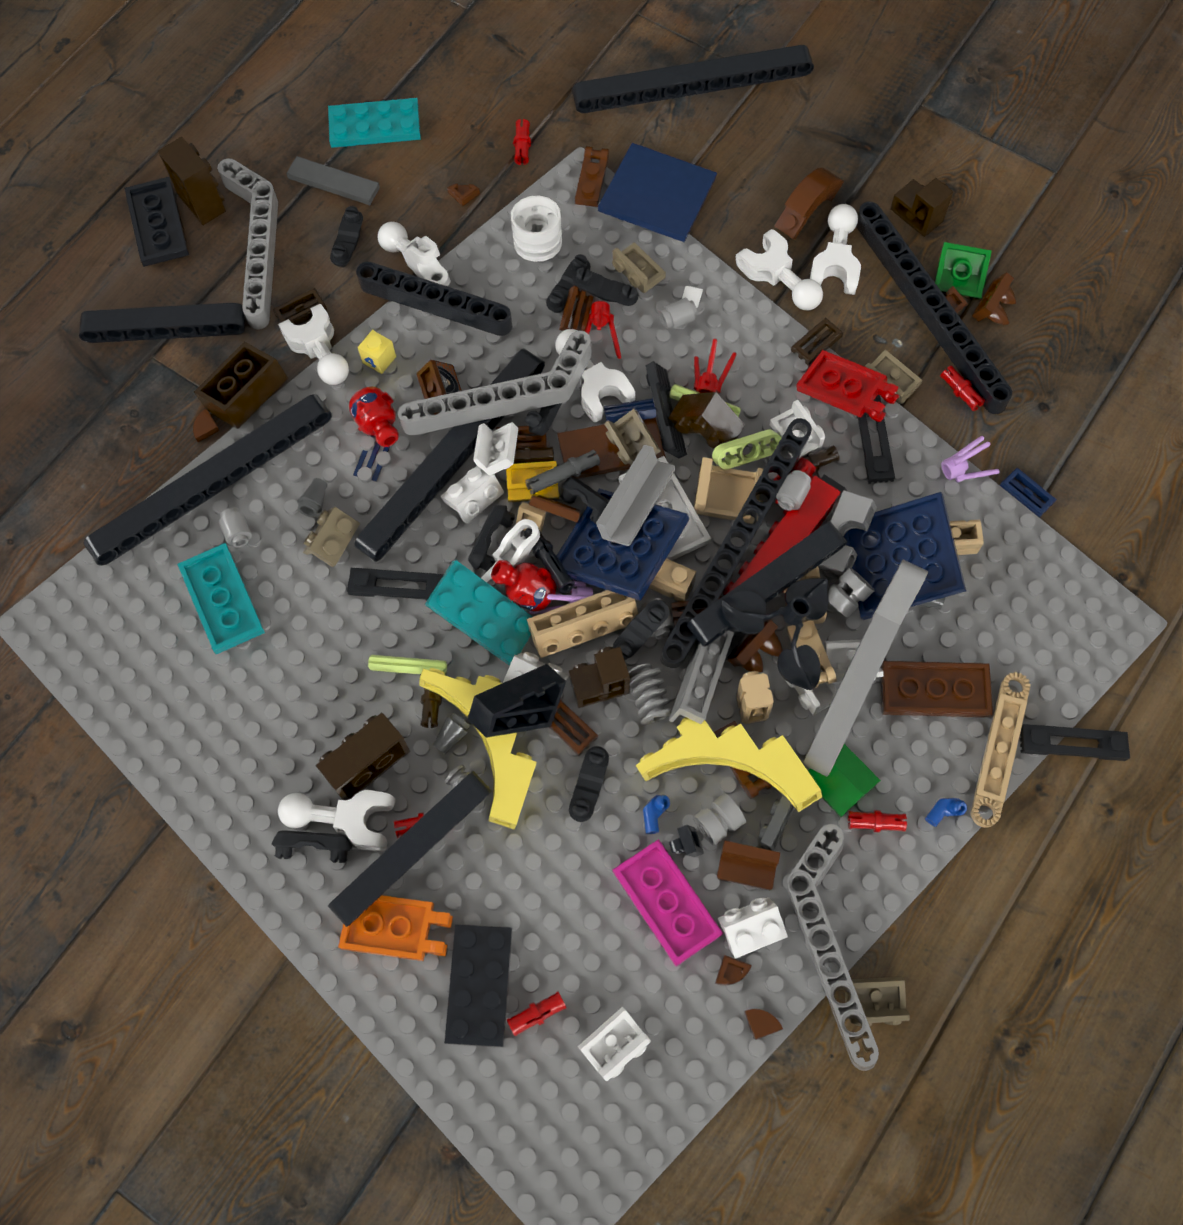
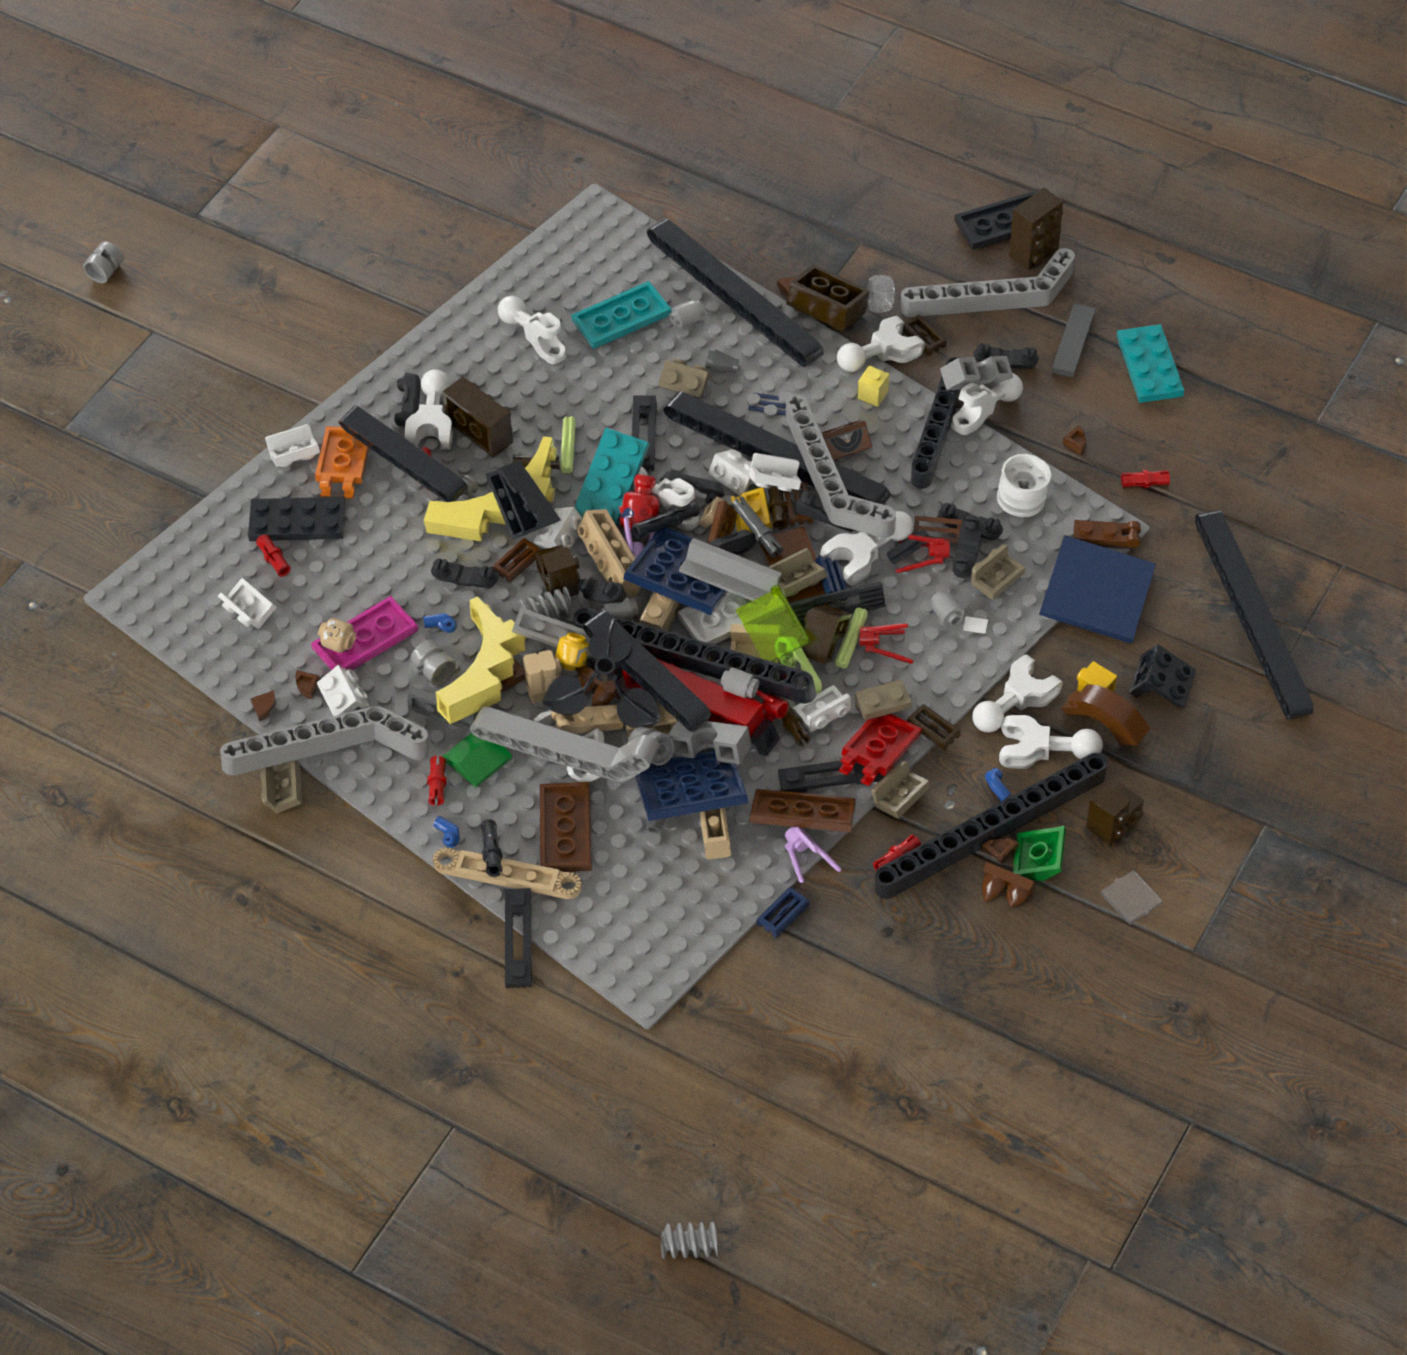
camera: 85 degrees right, 15 degrees down
(162, 322) = (892, 237): black beam -> none
(234, 685) = (538, 329): none -> white piece
(242, 330) = (881, 293): none -> clear gear
(369, 989) = (292, 446): none -> white bracket
(374, 414) = (811, 384): red piece -> none
(389, 249) = (966, 370): none -> light grey arch
(597, 341) = (906, 548): none -> black axle
(682, 928) = (337, 635): none -> tan head
(687, 842) = (411, 641): black tile -> none
(706, 461) = (772, 625): none -> clear neon green piece
(735, 658) = (572, 651): none -> yellow head
(748, 865) = (395, 688): reddish brown panel -> none
(762, 157) = (1164, 674): none -> black bracket
(768, 205) = (1096, 675): none -> yellow brick
(792, 376) = (882, 699): none -> dark tan bracket
(881, 299) = (993, 779): none -> blue arm
(924, 455) = (803, 810): none -> reddish brown tile
(982, 759) = (492, 853): none -> black pin
(1001, 210) = (1131, 897): none -> clear piece

